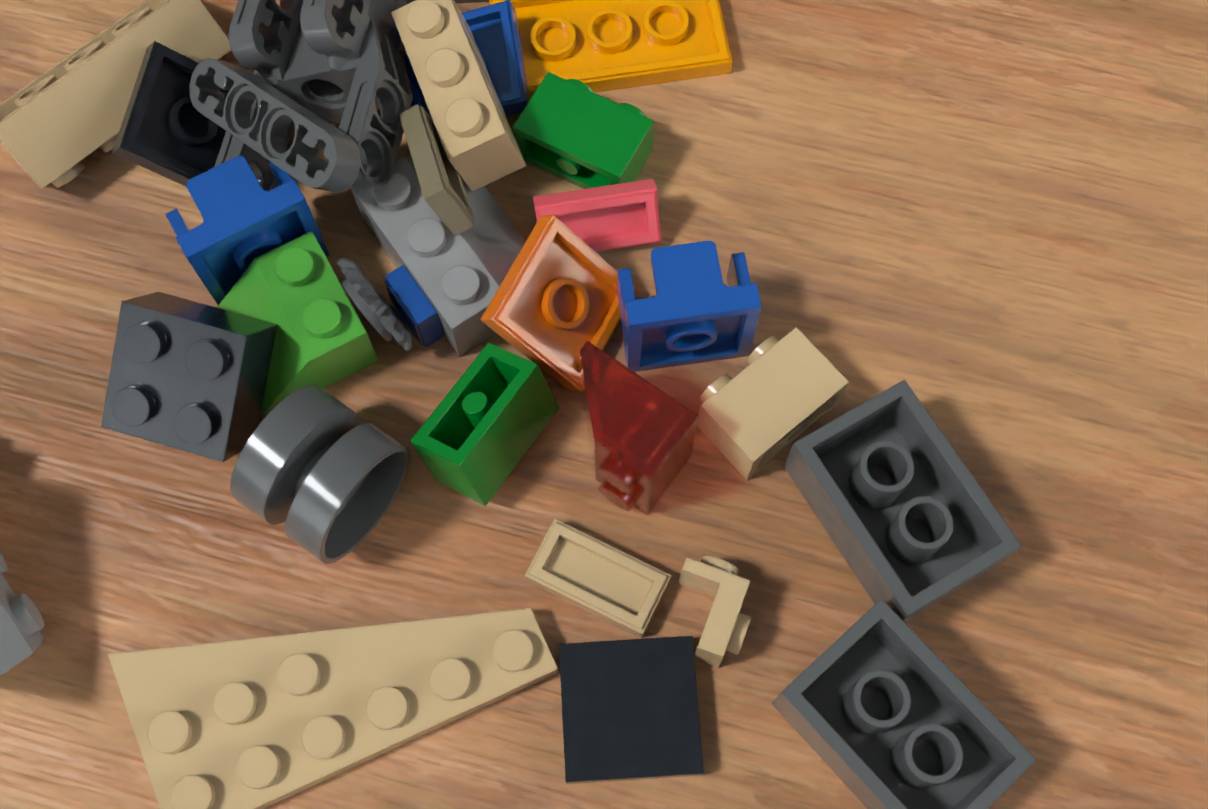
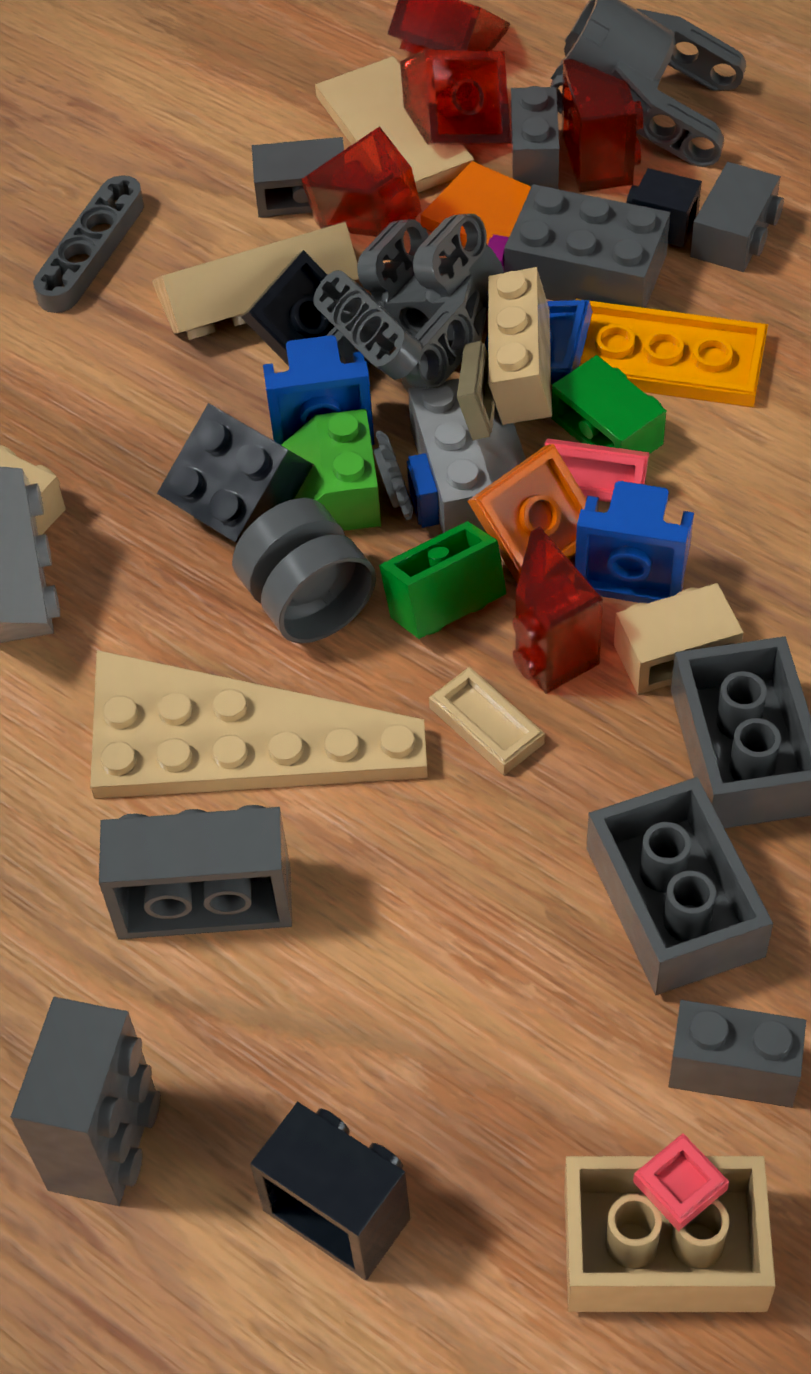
camera: 25 degrees right, 15 degrees down
(630, 710) = (471, 816): black tile -> none
(725, 624) = (575, 766): tan bracket -> none

